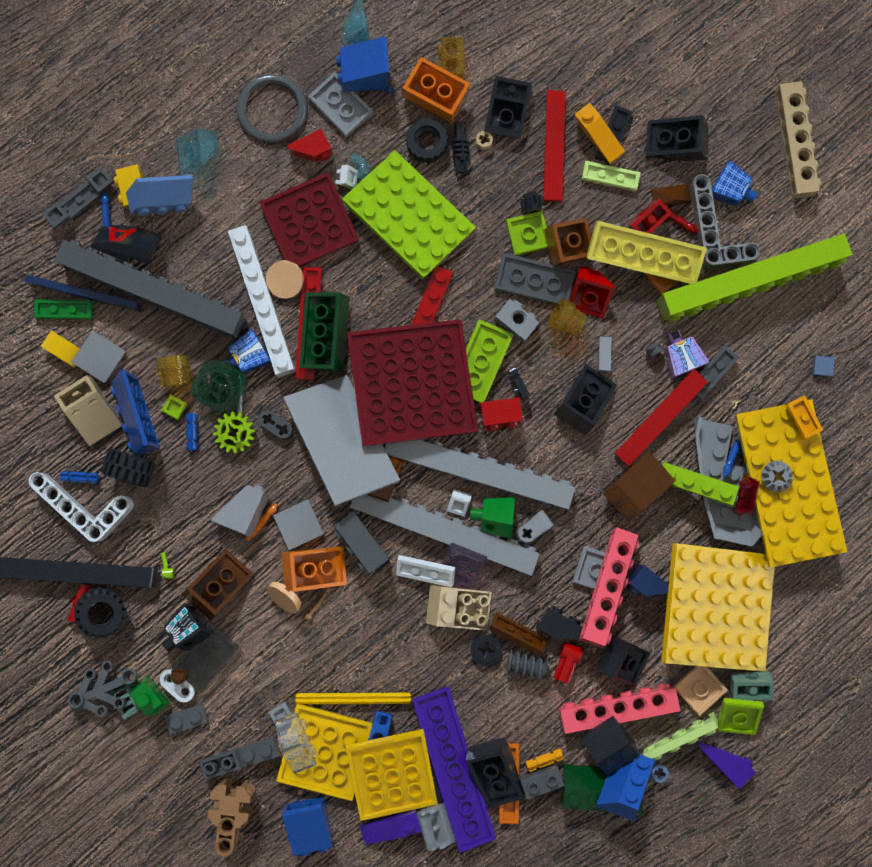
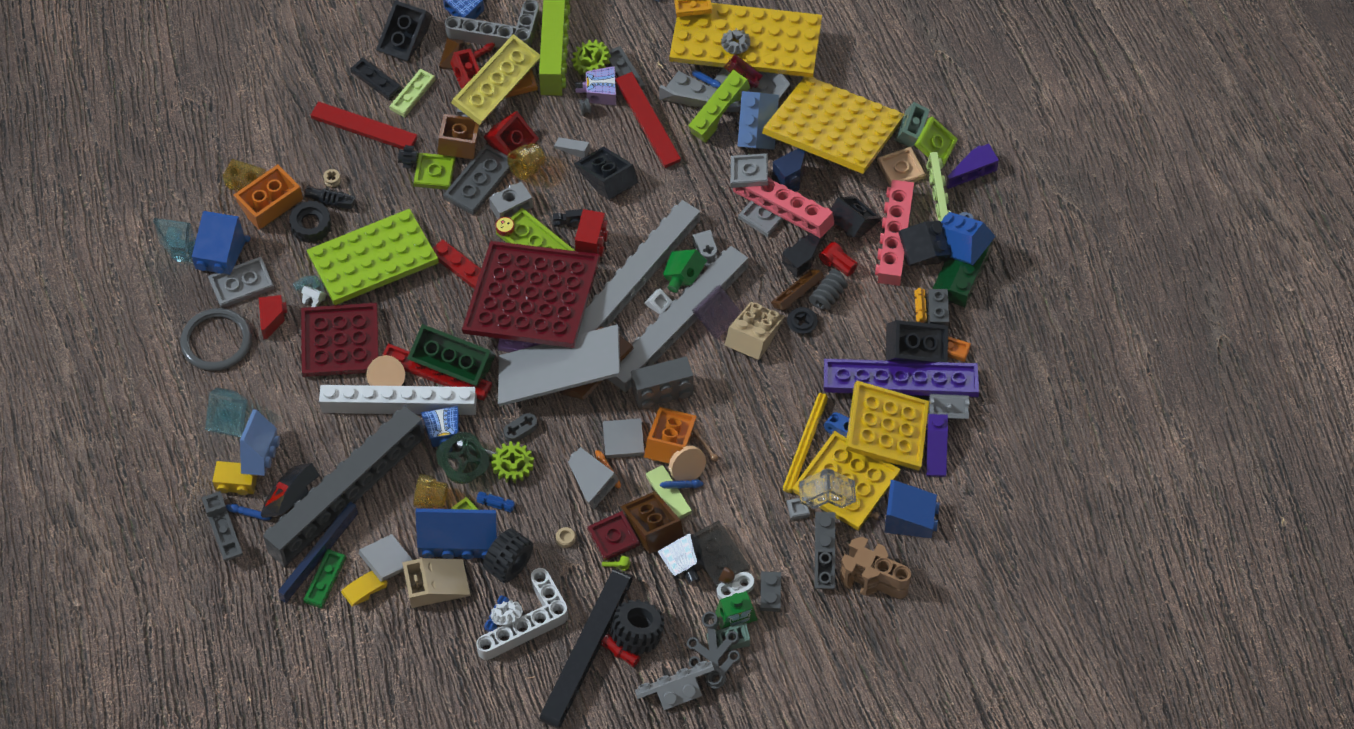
camera: 65 degrees left, 25 degrees down
(57, 667) = (676, 688): none -> light grey bracket
(67, 493) = (511, 610): none -> white gear
(178, 509) = (565, 537): none -> tan tile
(191, 553) = (613, 536): none -> dark red plate
(255, 588) = (671, 497): none -> yellowish green tile
(265, 598) = (681, 484): none -> blue piece
(425, 571) = (709, 342): white plate -> none
(484, 326) = (505, 226): none -> tile
(508, 107) = (310, 148): black slope -> none
(599, 133) = (370, 85): light orange slope -> none
(631, 542) = (749, 170): none -> light grey tile
(639, 486) = (702, 150): reddish brown slope -> none
(696, 527) = (754, 114): none -> medium blue slope
(713, 326) = (596, 50): none -> lime gear

